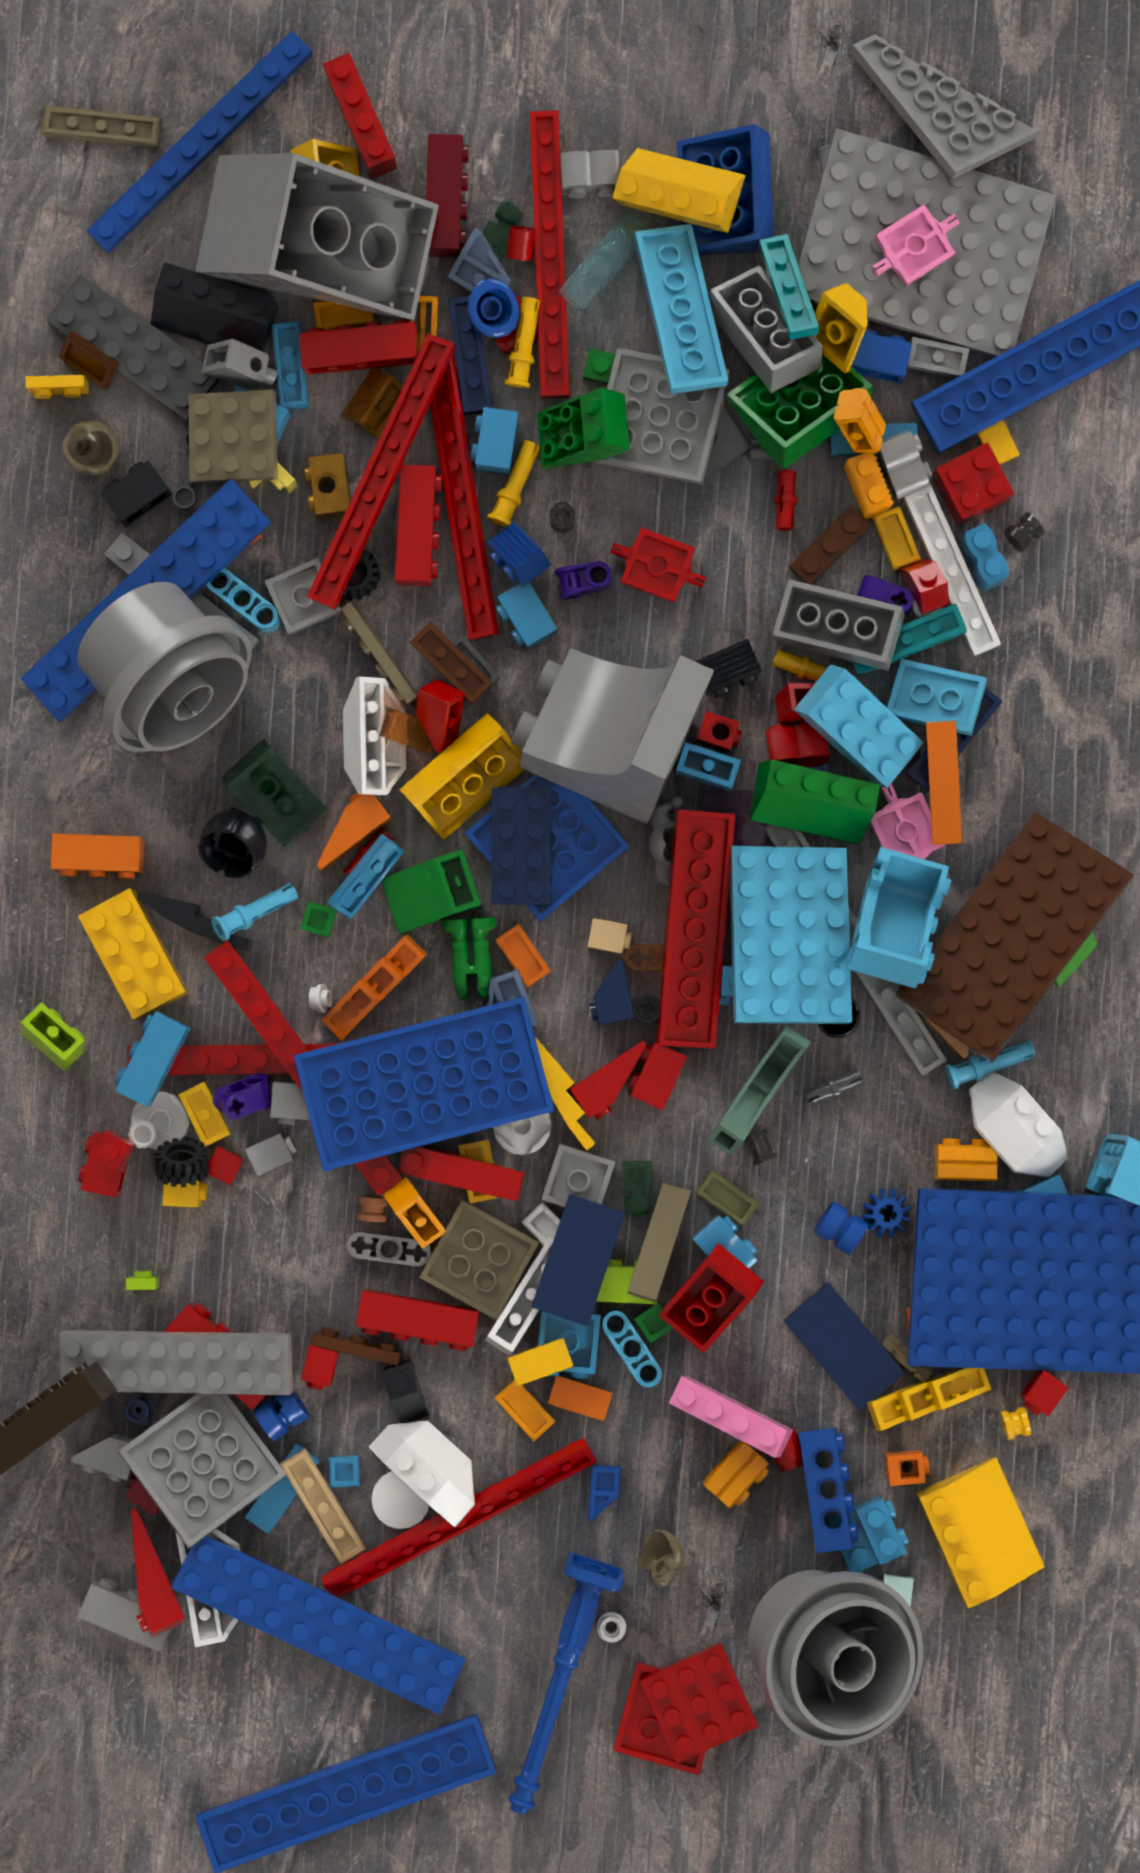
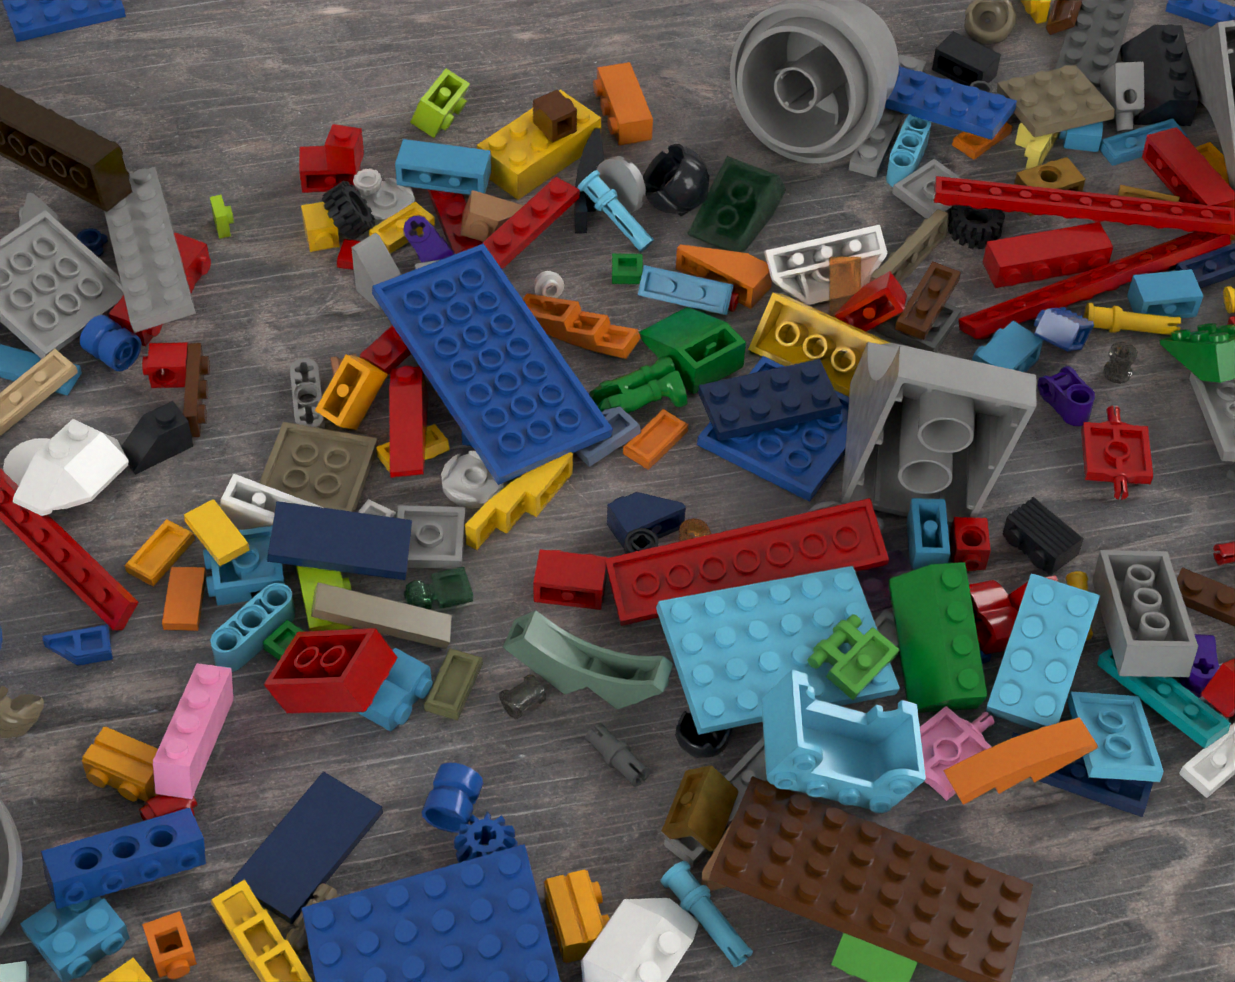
camera: 70 degrees right, 35 degrees down
(130, 937) = (555, 115): none -> reddish brown brick
(222, 899) = (625, 179): none -> light grey tile
(228, 1033) = (485, 215): none -> medium nougat slope
(344, 1471) = (57, 413): dark azure tile -> none
(417, 1318) = (237, 427): red brick -> none
(604, 1085) = (536, 527): red slope -> none
(609, 936) = (706, 497): tan brick -> none
(829, 874) = (861, 663): none -> bright green plate
(910, 1042) = (701, 807): none -> pearl gold panel

